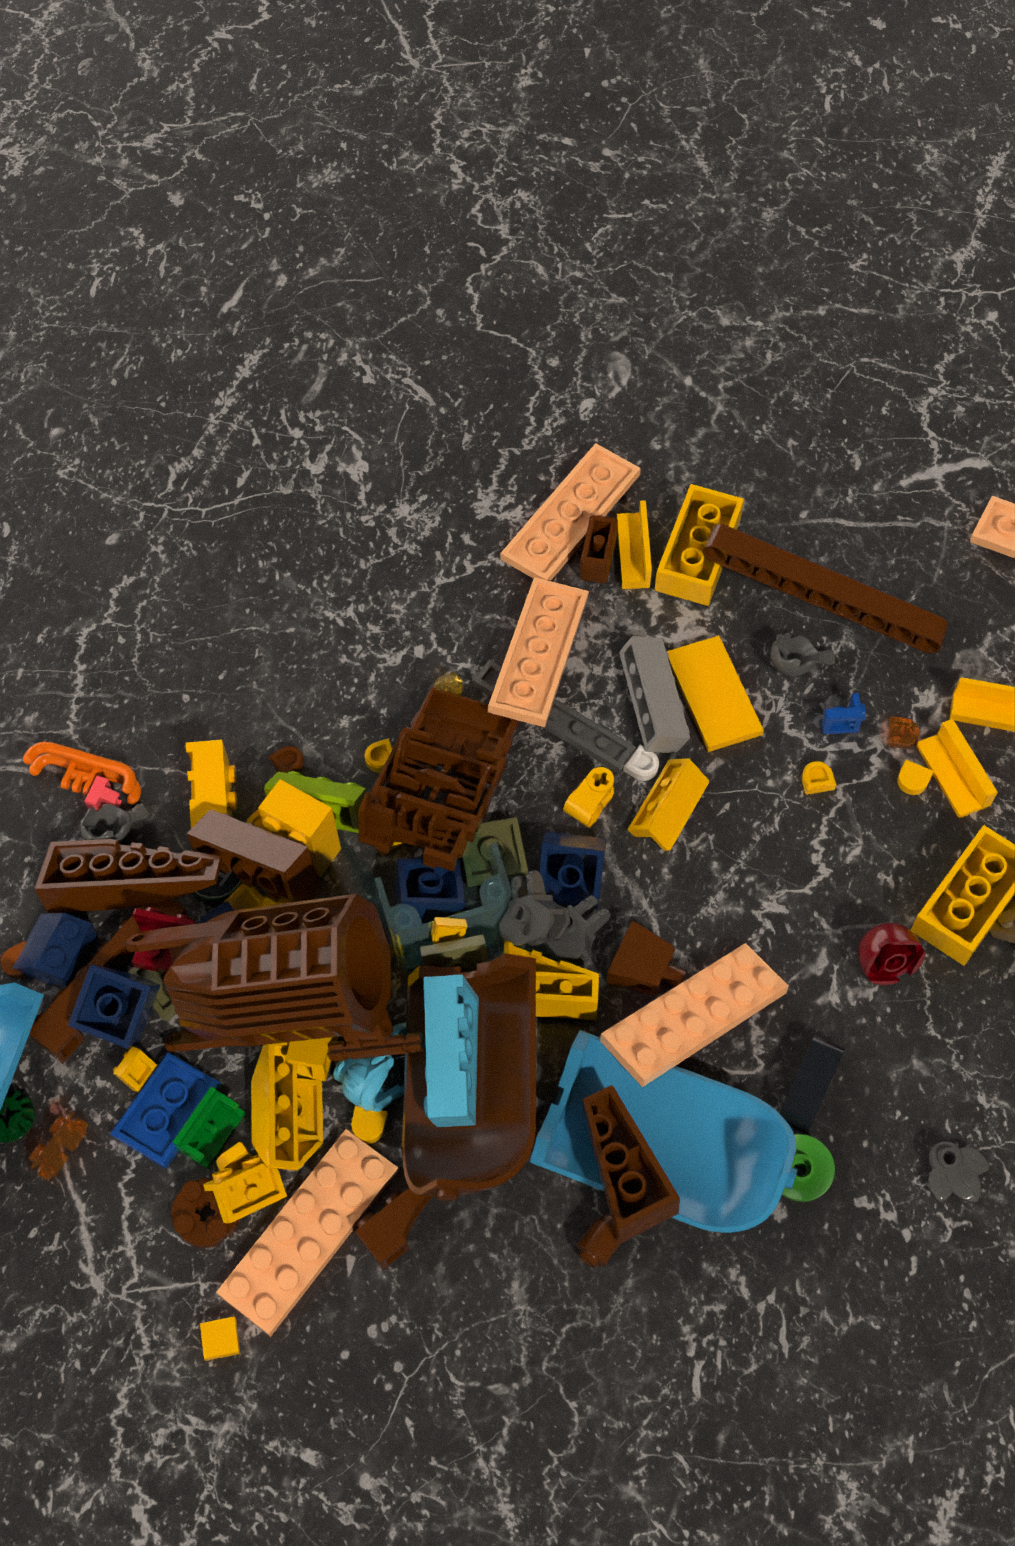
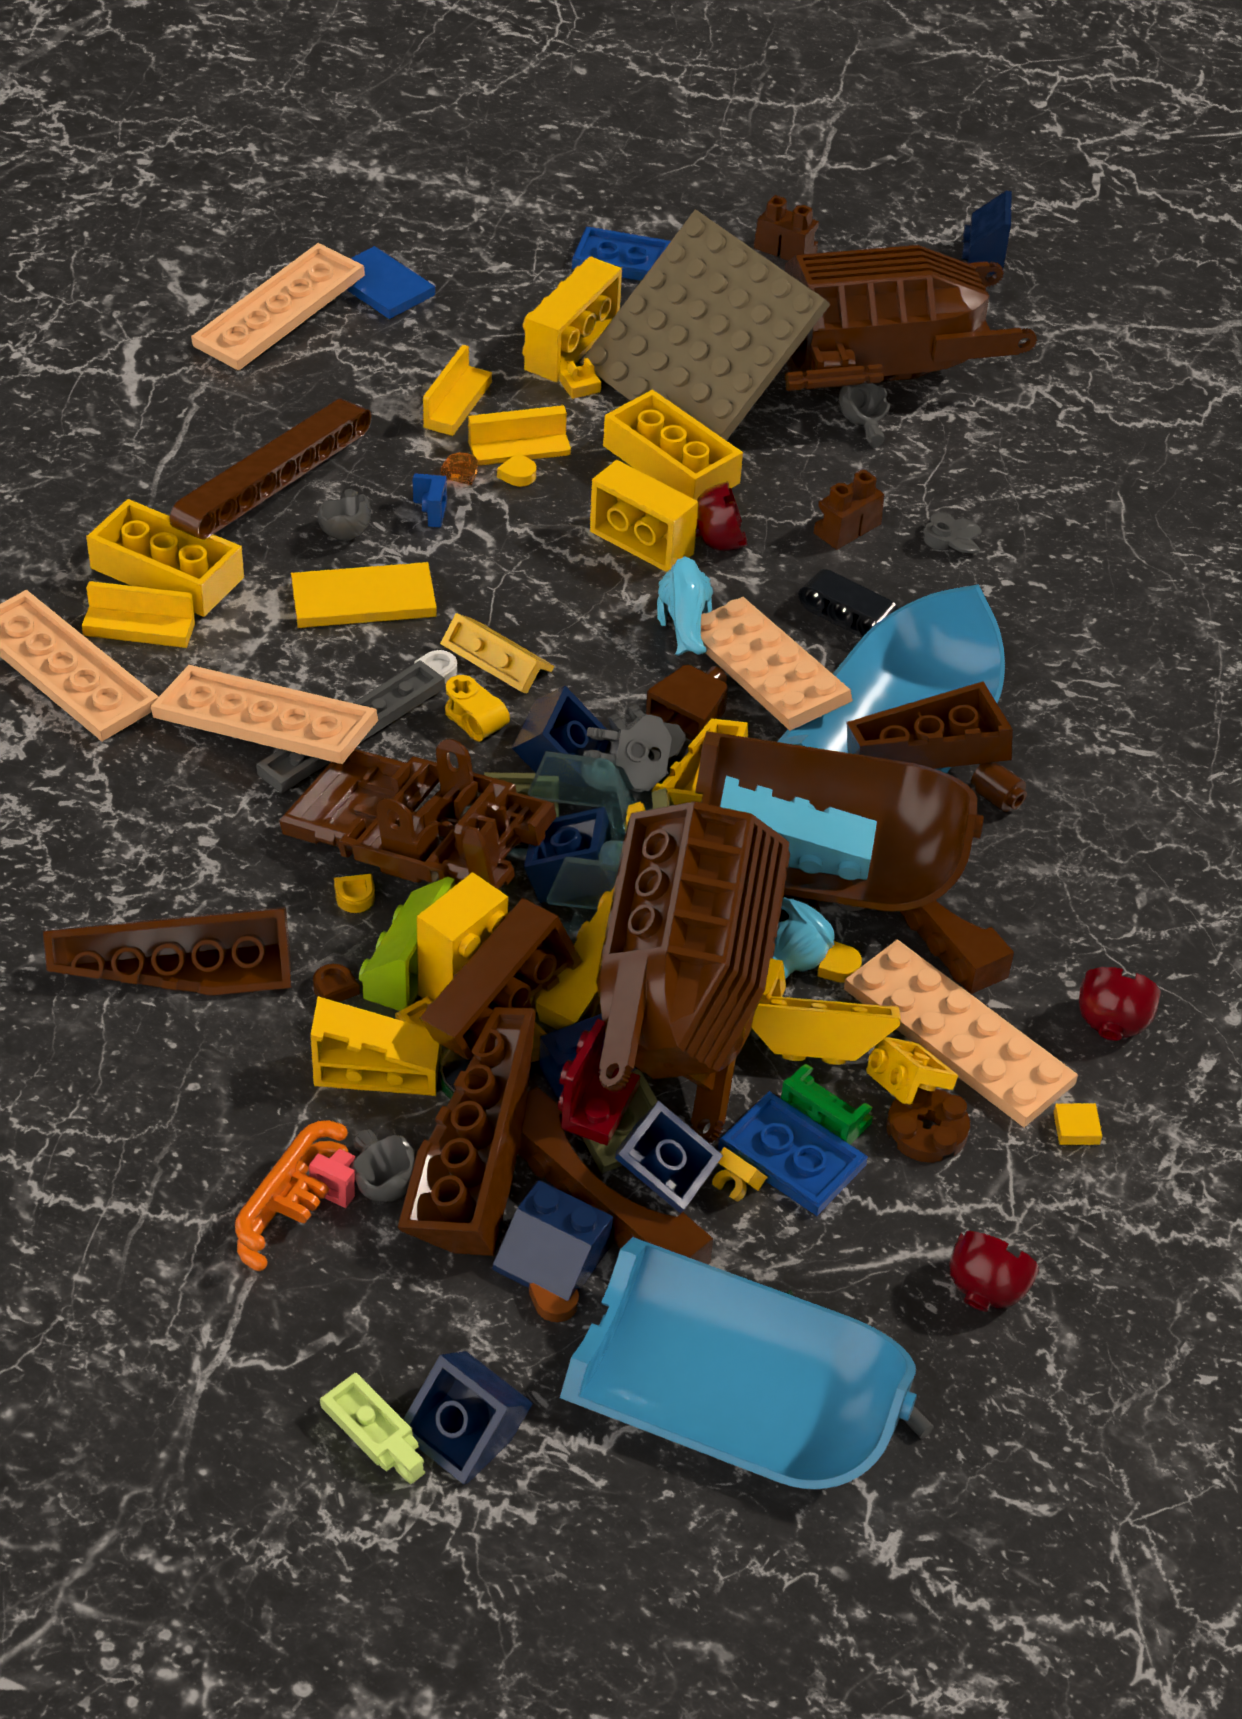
camera: 85 degrees left, 15 degrees down
(48, 1156) = (823, 1266): clear orange hinge -> none
(48, 1270) = (990, 1272): none -> dark red cylinder
(233, 1157) = (868, 1082): yellow tile -> none
(300, 676) = (181, 953): none -> reddish brown wedge
(339, 1362) = (1116, 1003): none -> dark red cylinder
(450, 683) = (275, 806): clear yellow plate -> none
(598, 549) = (137, 640): reddish brown brick -> none
(654, 695) = (357, 631): light grey brick -> none
(768, 931) = (685, 595): none -> medium azure hair
(817, 778) = (496, 538): yellow tile -> none
(863, 883) = (643, 515): none -> yellow brick
(950, 1068) = (850, 510): none -> reddish brown hips

